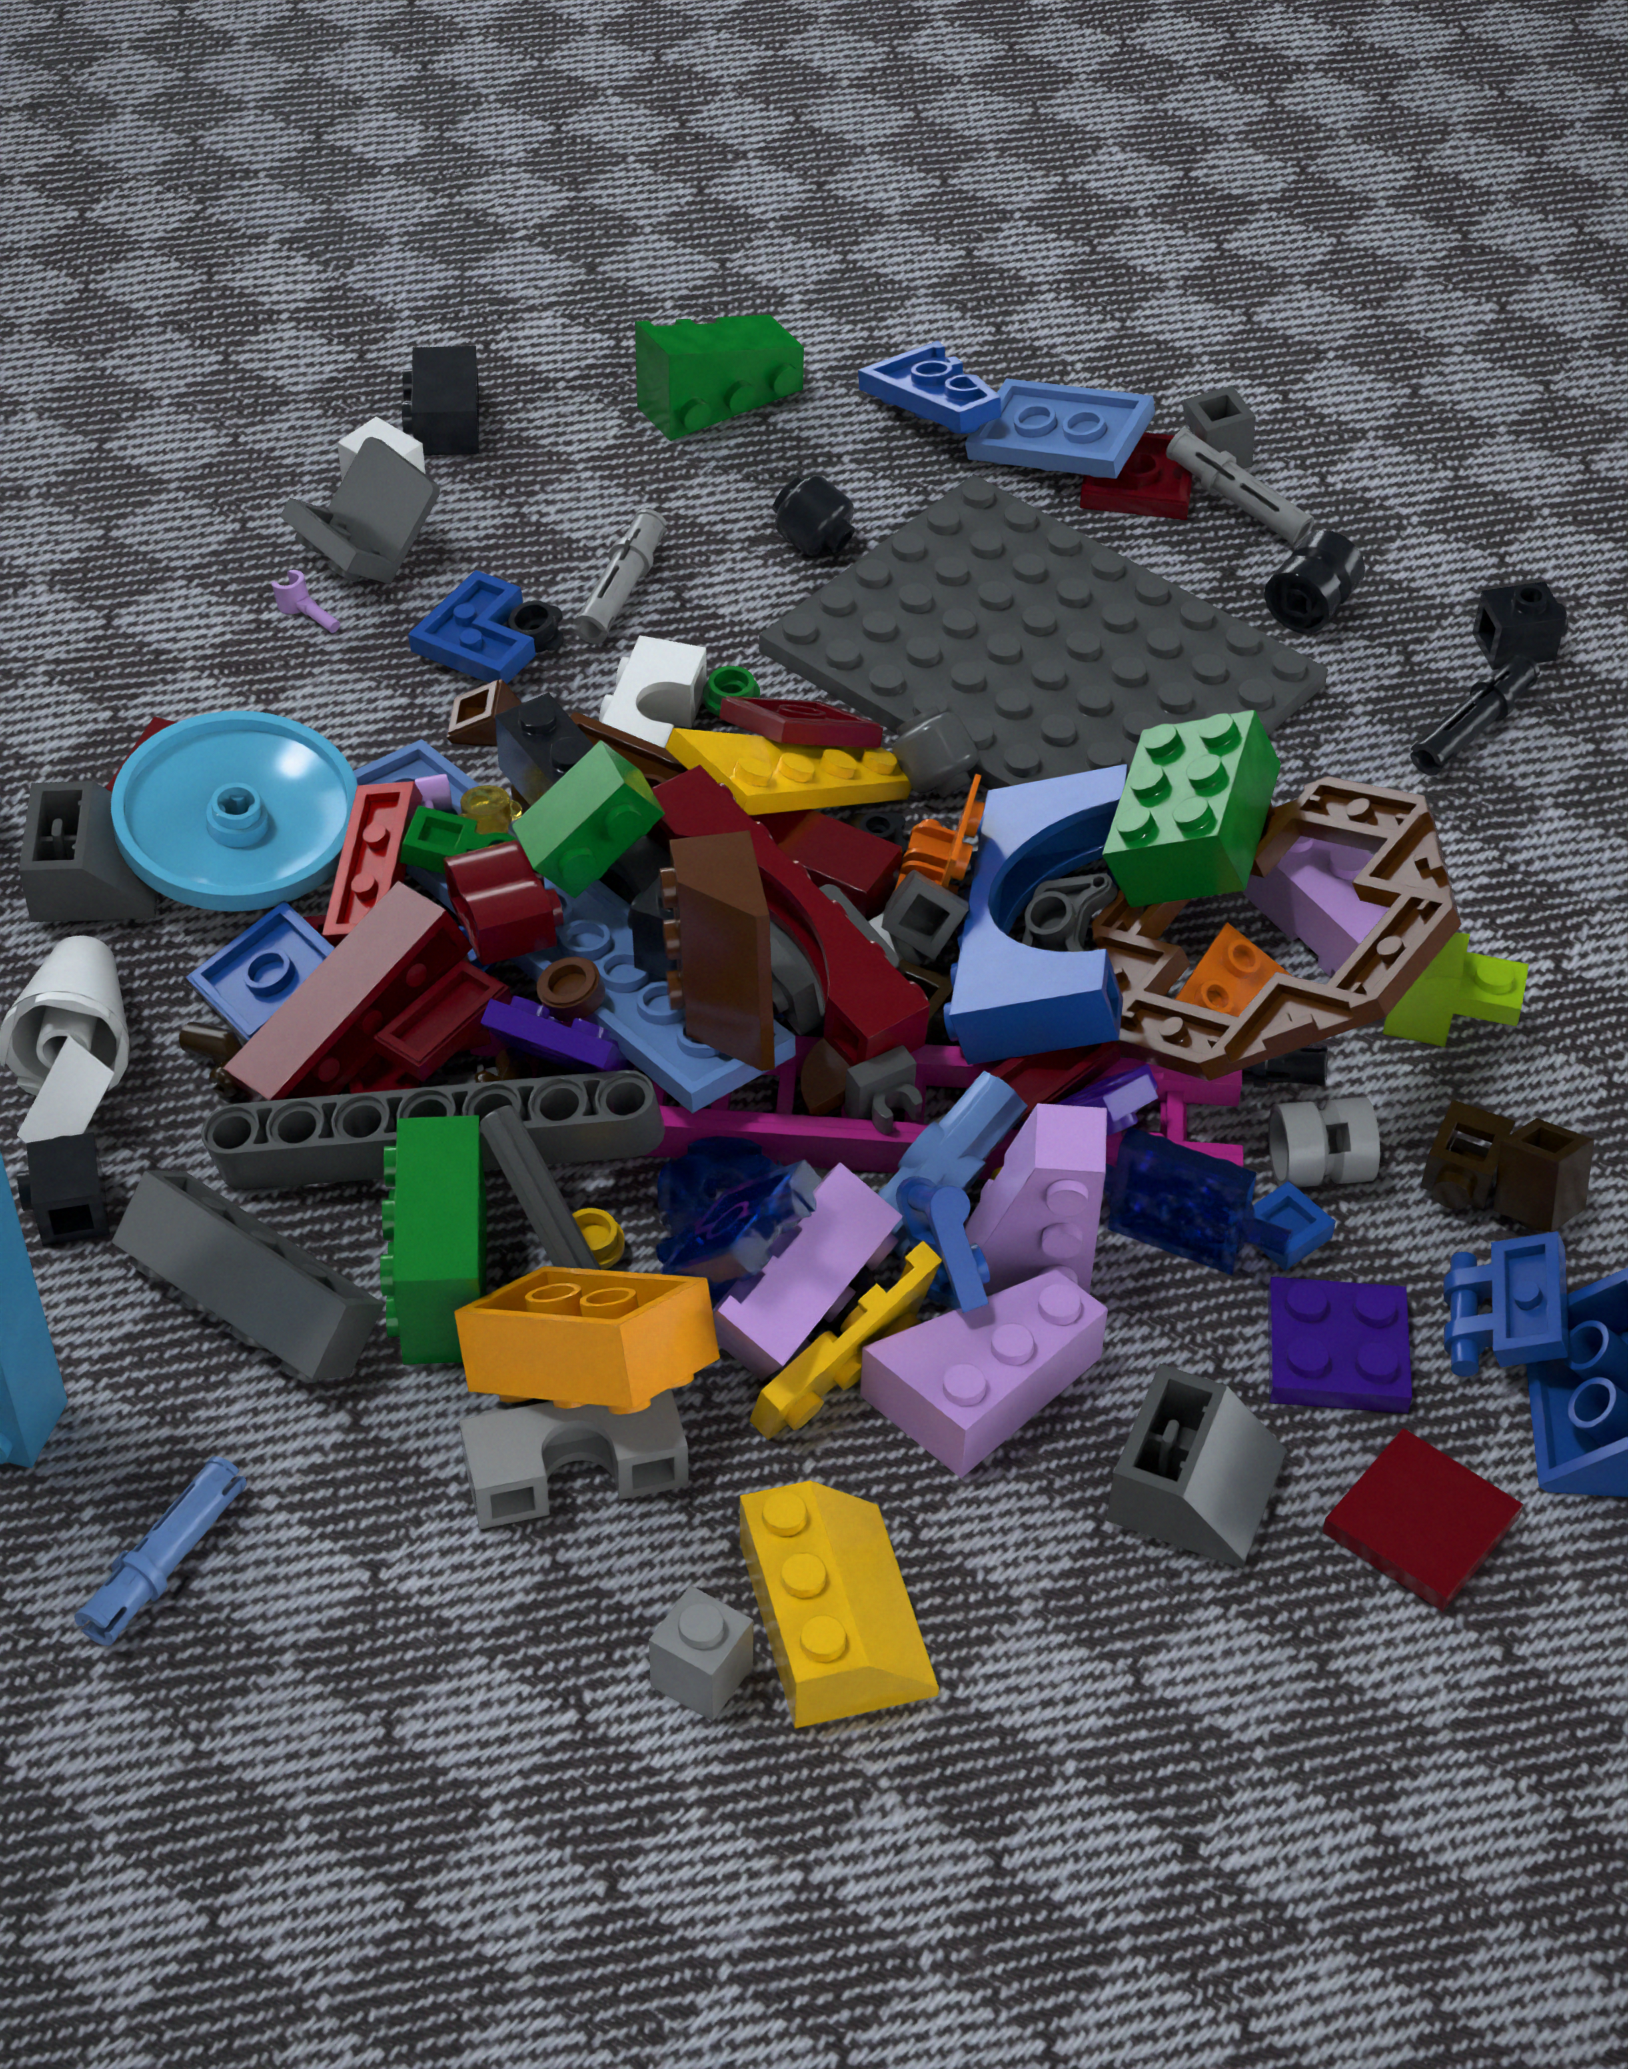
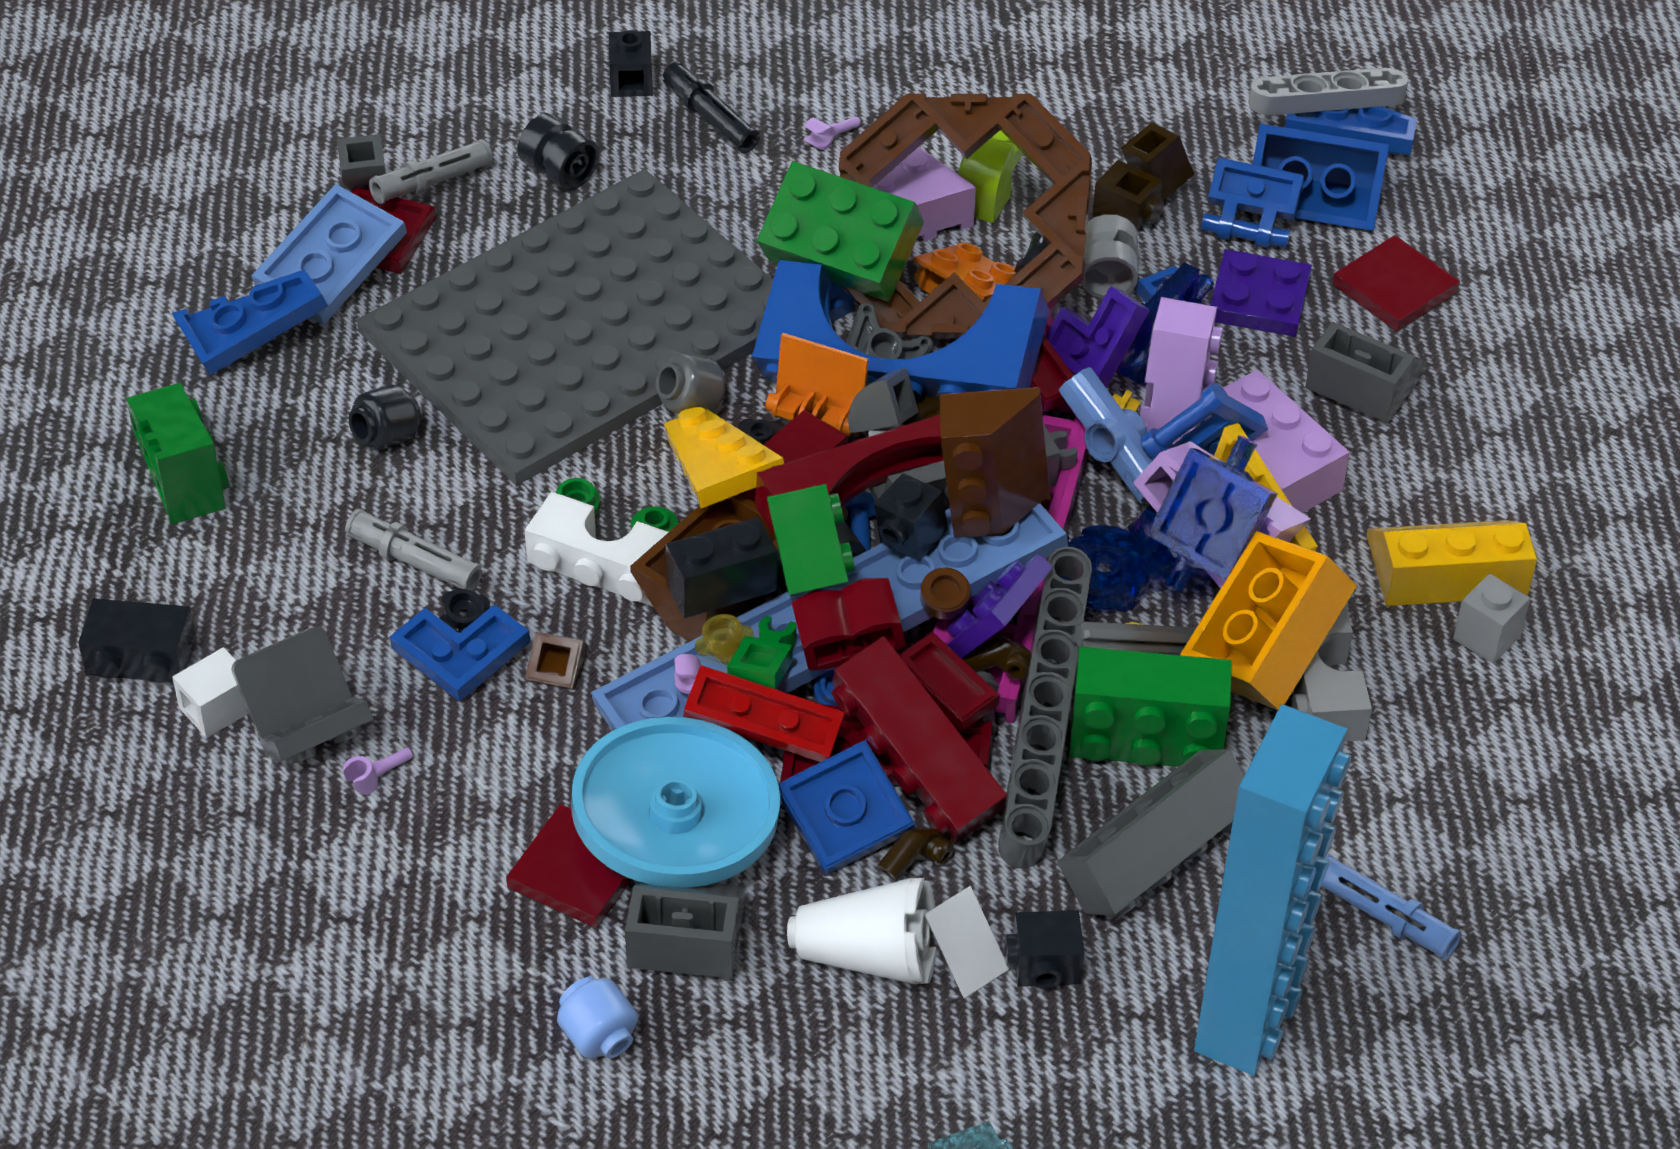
camera: 80 degrees left, 0 degrees up
(801, 722) = (652, 448): dark red tile -> none
(1475, 830) = (824, 134): none -> lavender hand

